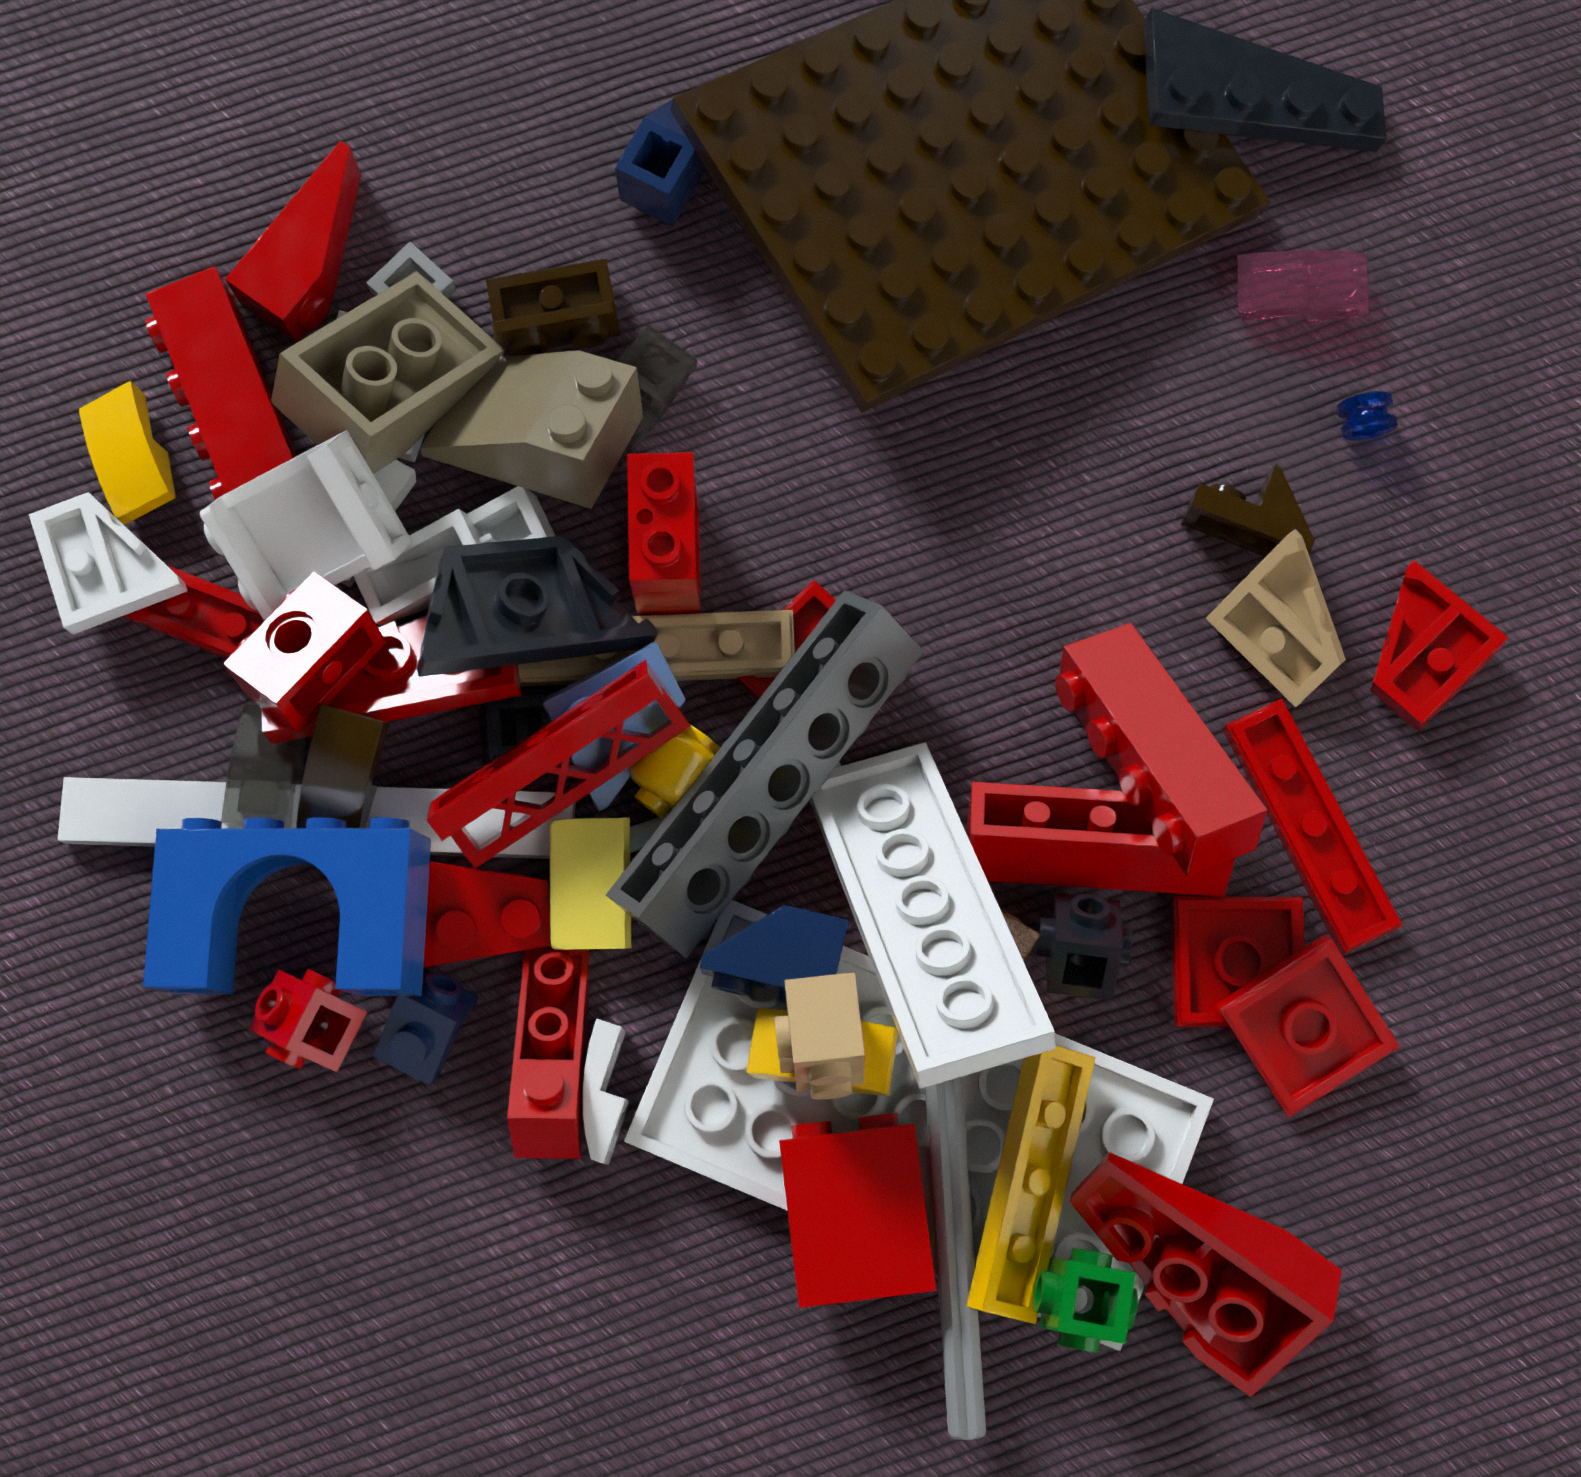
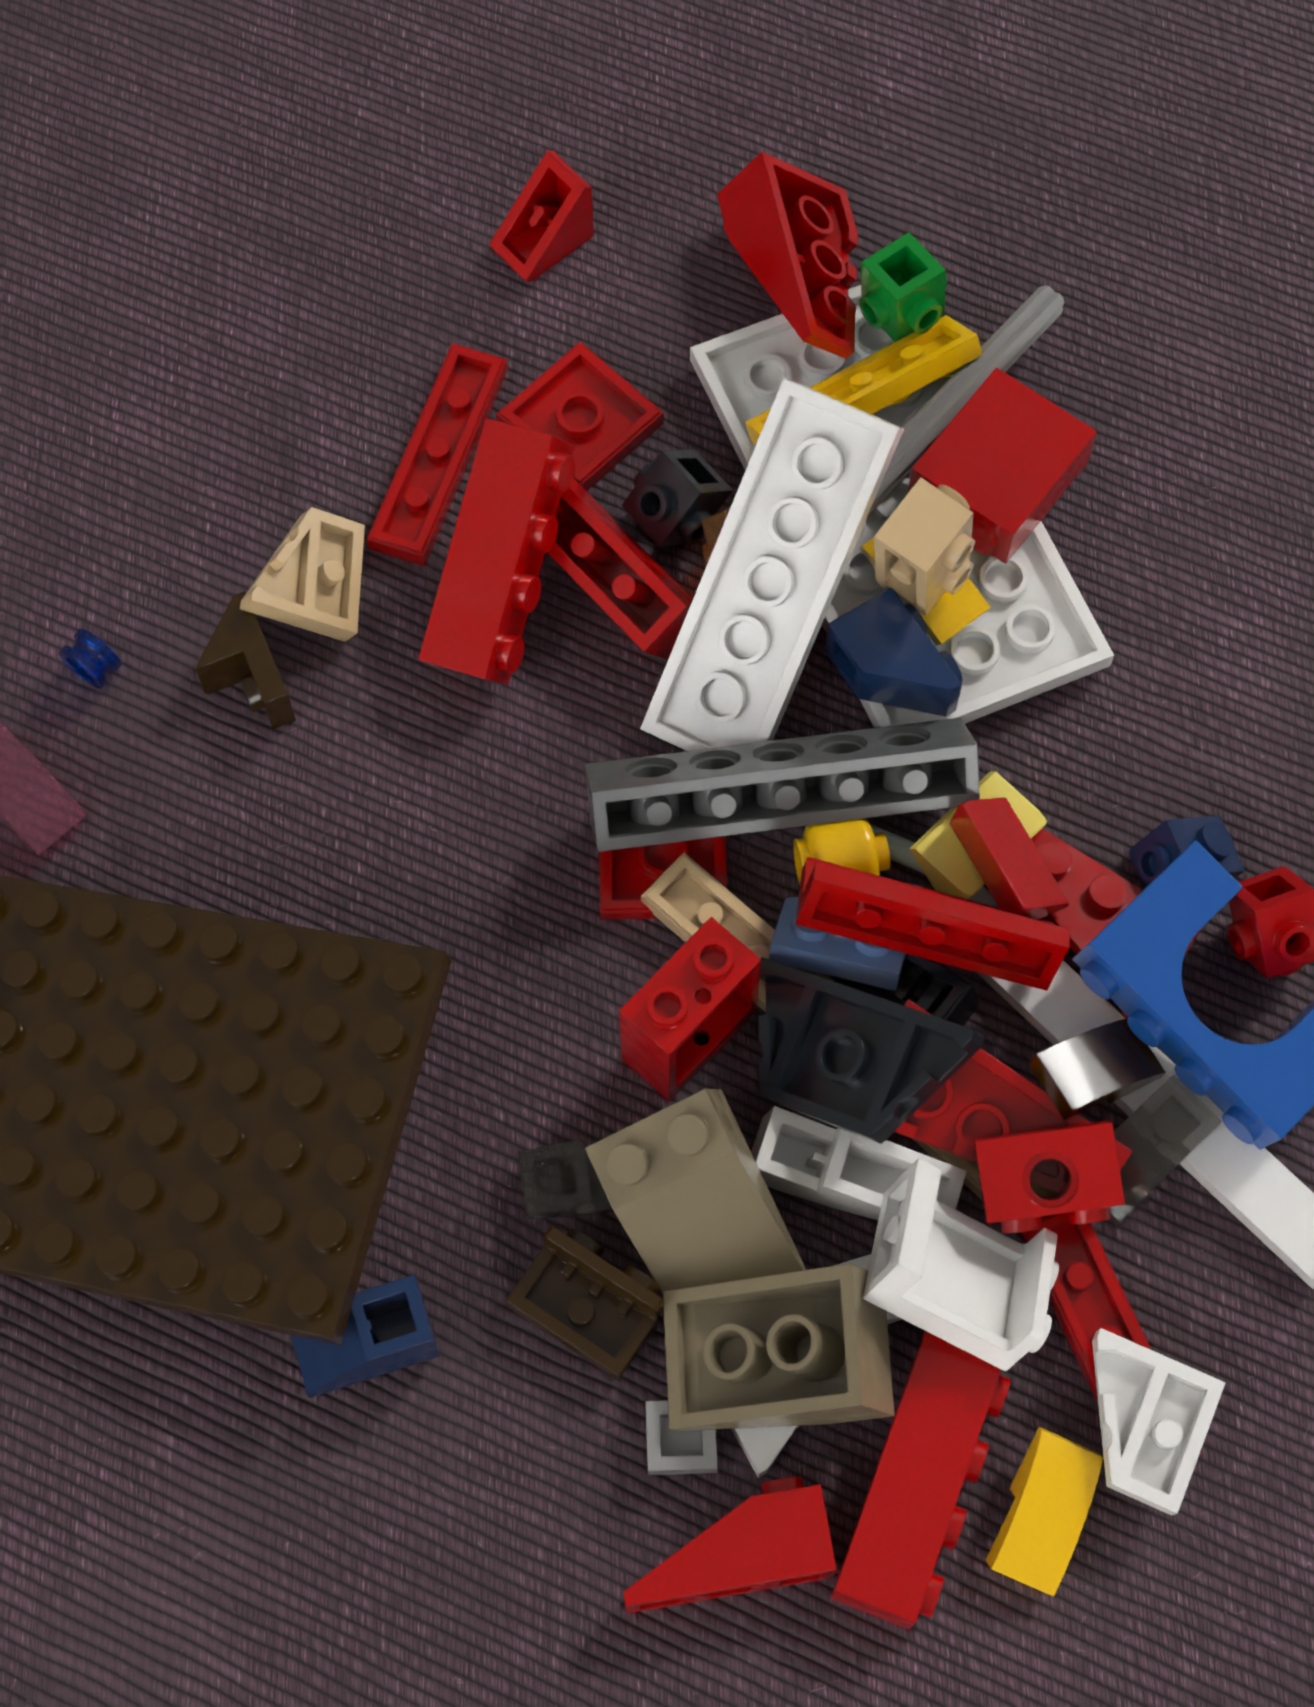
camera: 135 degrees left, 10 degrees down
(543, 873) = (1007, 858): none -> red slope
(550, 1055) = (1113, 756): red slope -> none
(602, 1111) = (1104, 695): white slope -> none
(1307, 1025) = (582, 336): red tile -> none
(1431, 648) = (233, 480): red wing -> none
(1450, 1103) = (546, 219): none -> red slope

